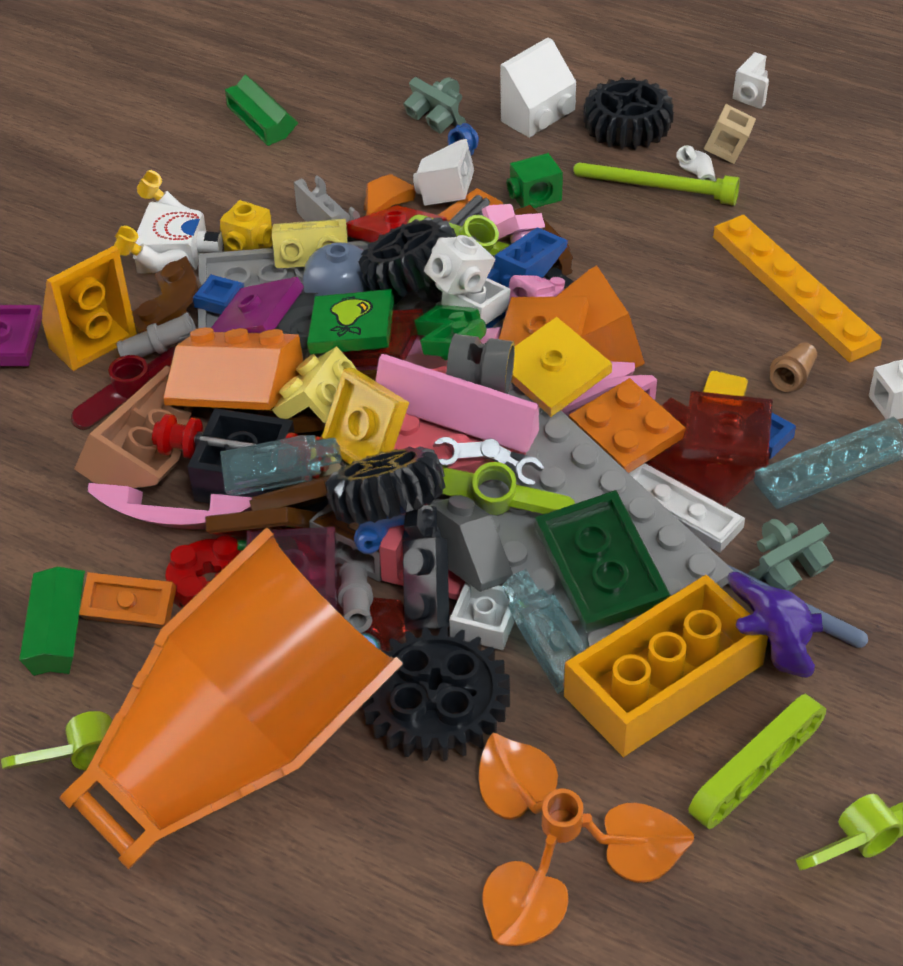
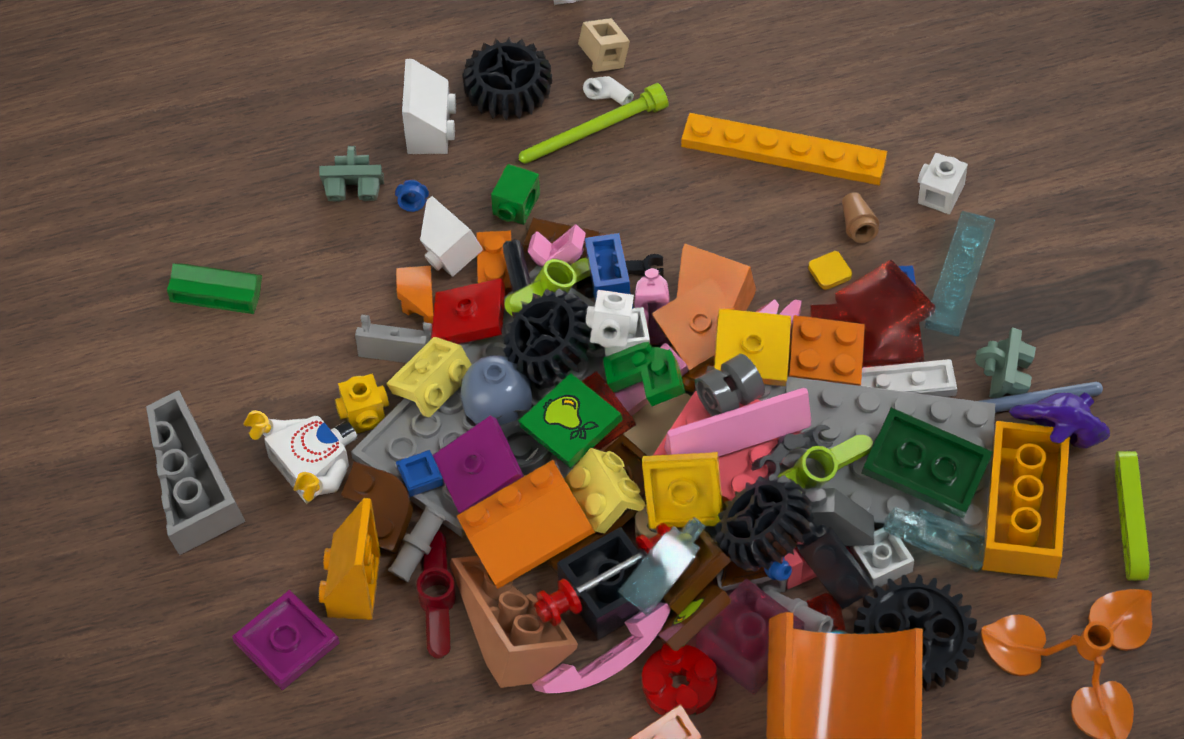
camera: 45 degrees left, 10 degrees up
(79, 196) = (191, 483): none -> light grey wedge

